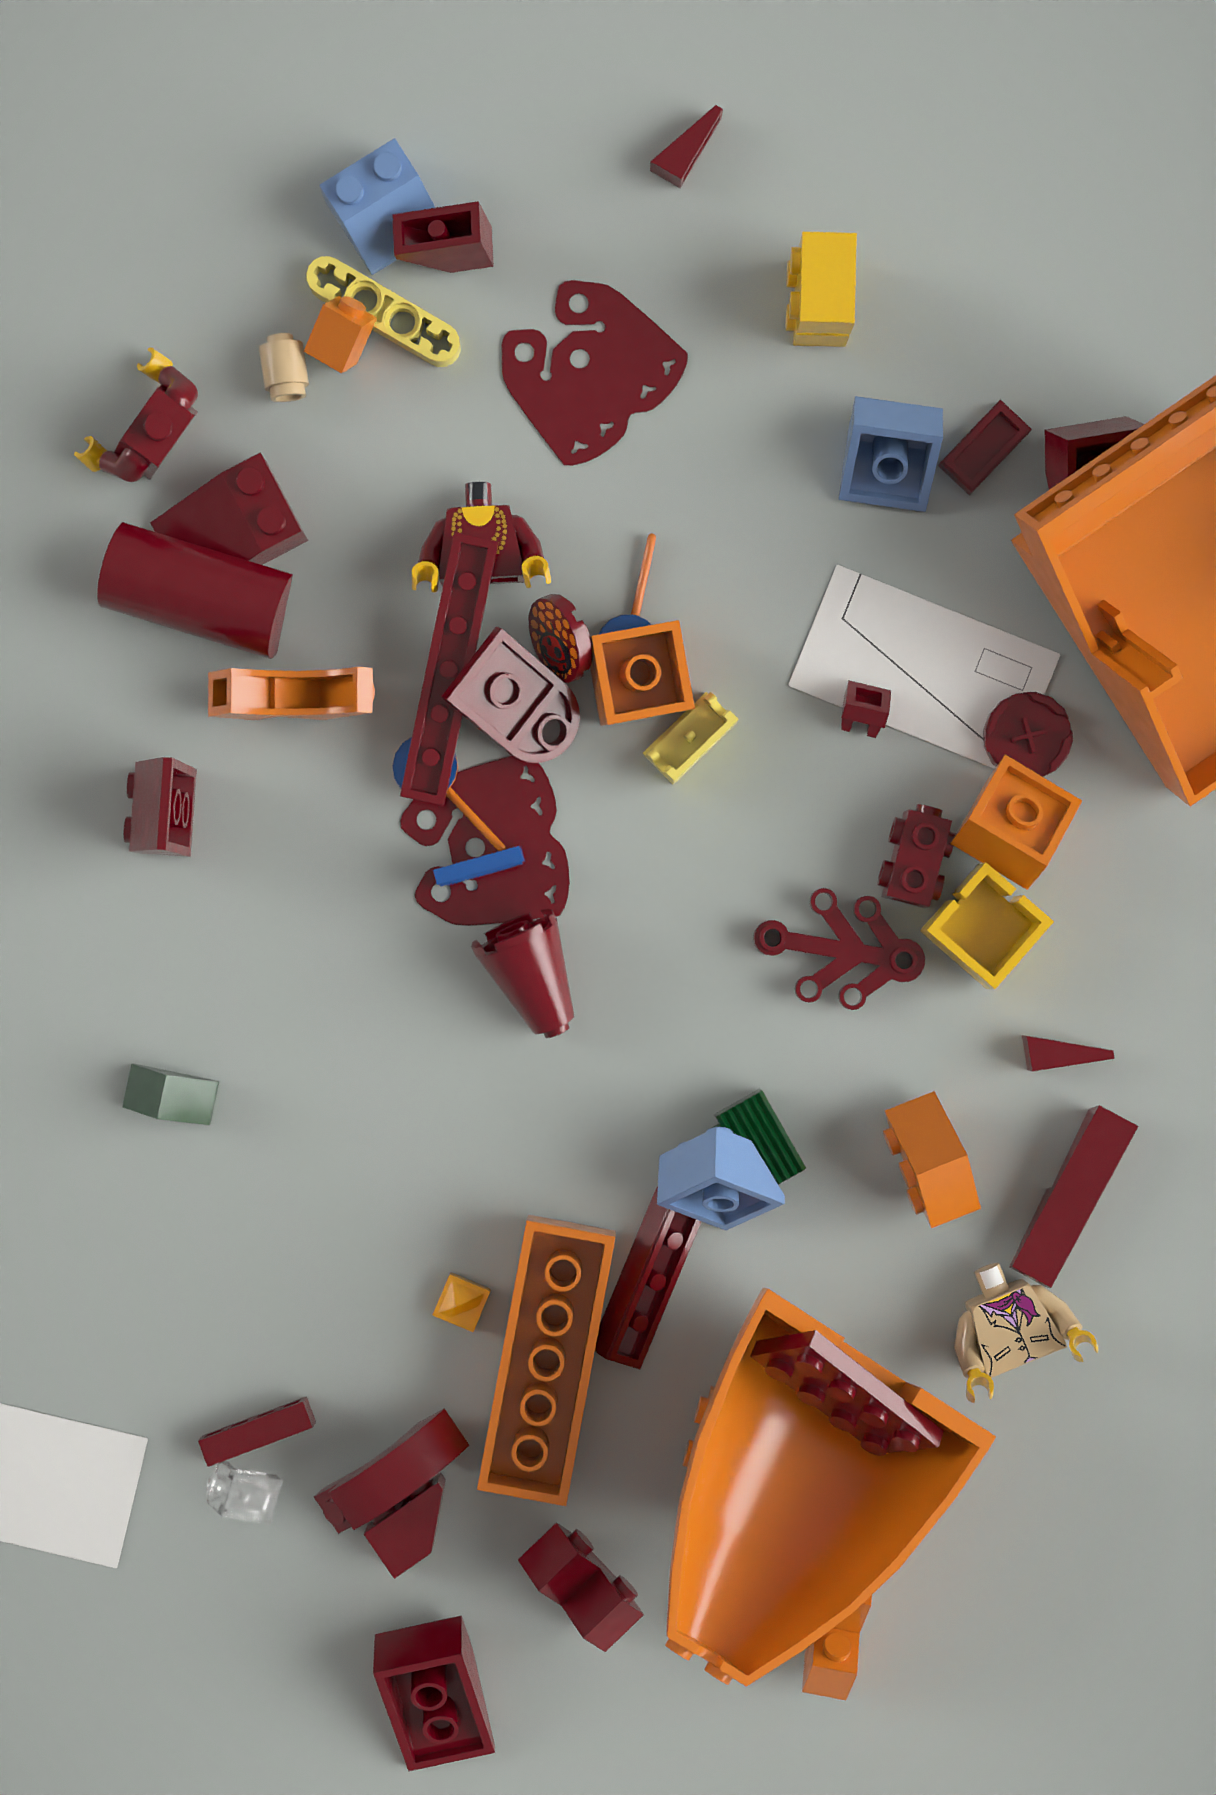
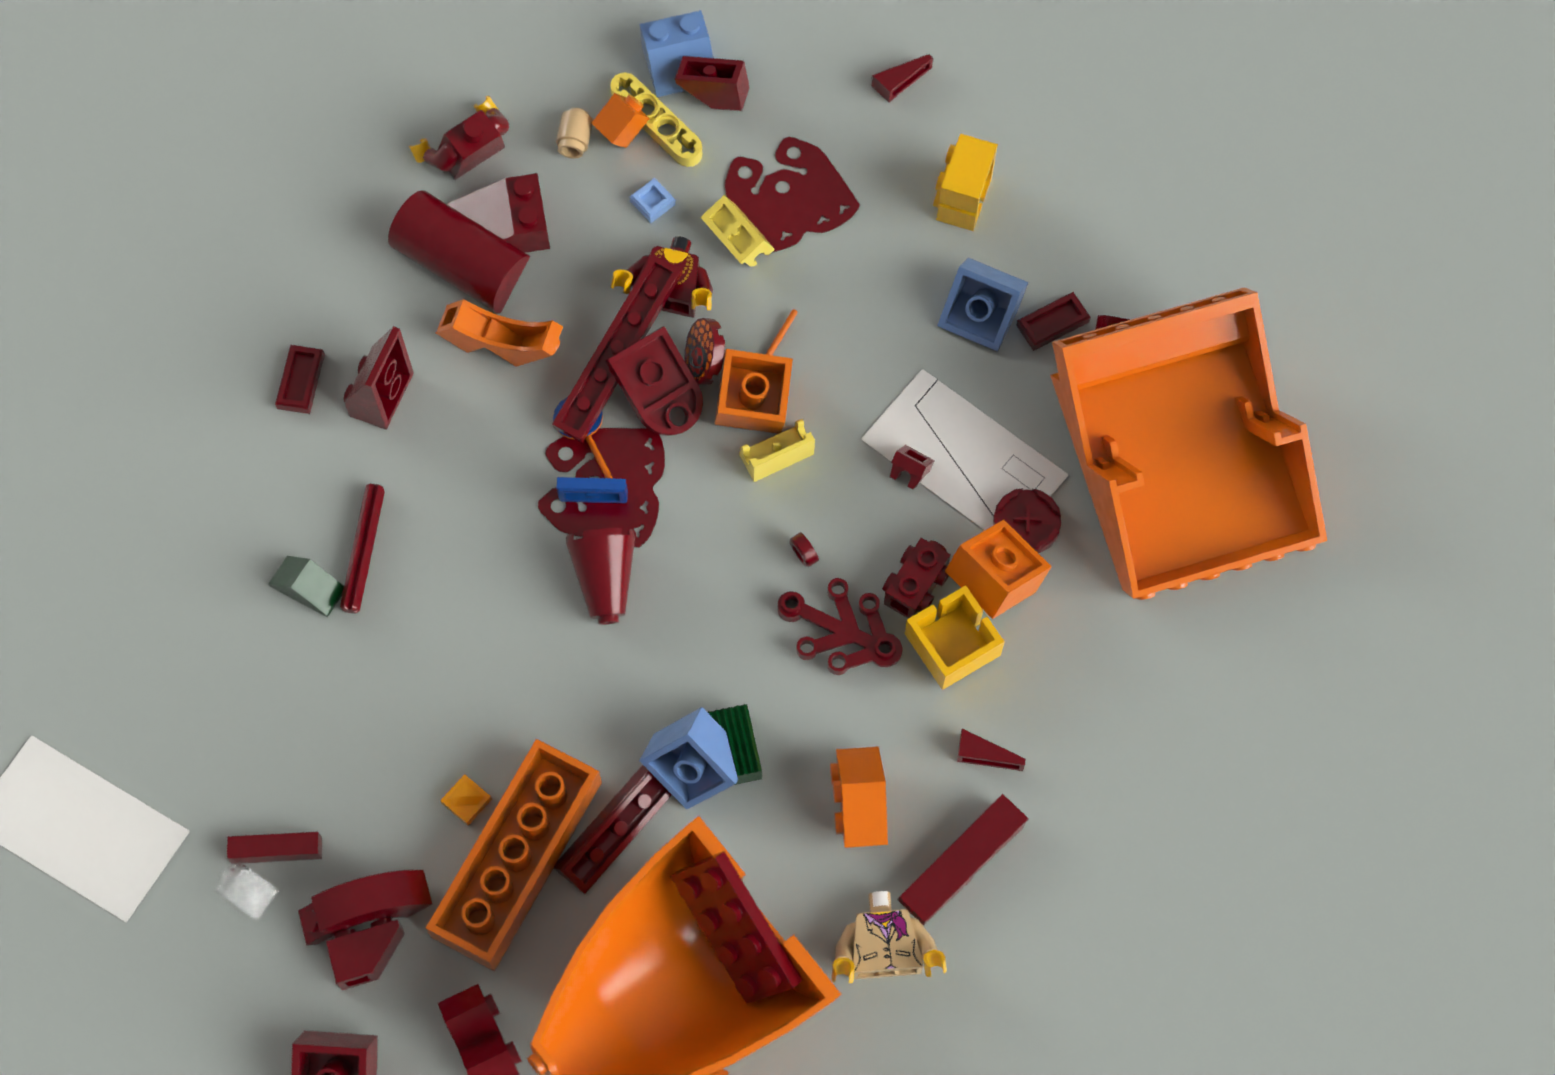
camera: 20 degrees right, 20 degrees down
(56, 824) = (300, 379): none -> dark red tile
(220, 1026) = (362, 548): none -> dark red axle
(418, 432) = (652, 200): none -> light blue tile
(544, 449) = (736, 231): none -> light yellow hinge
(765, 863) = (803, 550): none -> dark red tile

